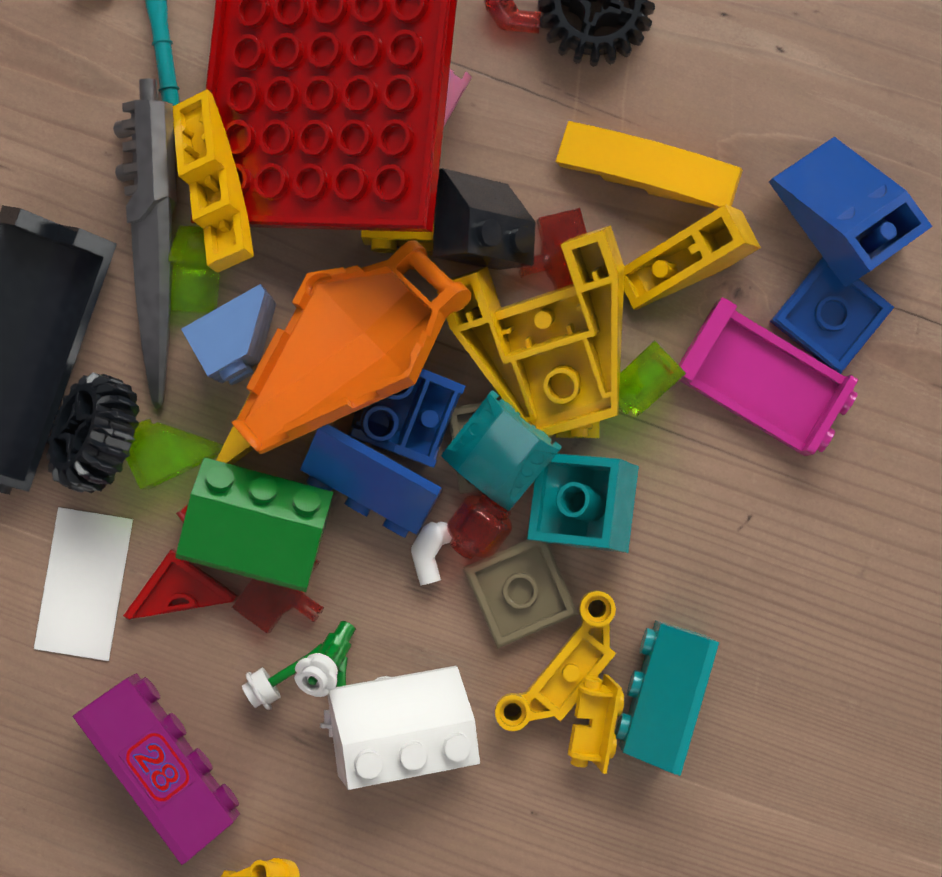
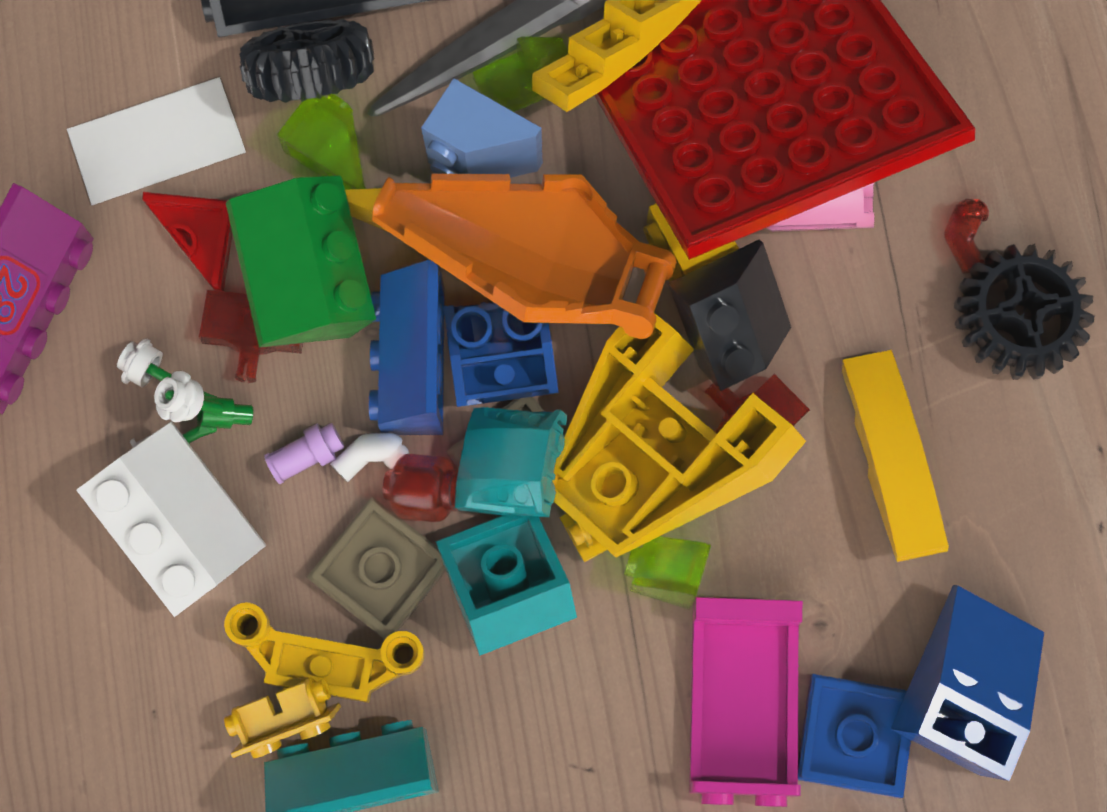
camera: 65 degrees right, 10 degrees down
(402, 591) = (314, 447): none -> lavender animal
(690, 256) = (827, 549): yellow slope -> none

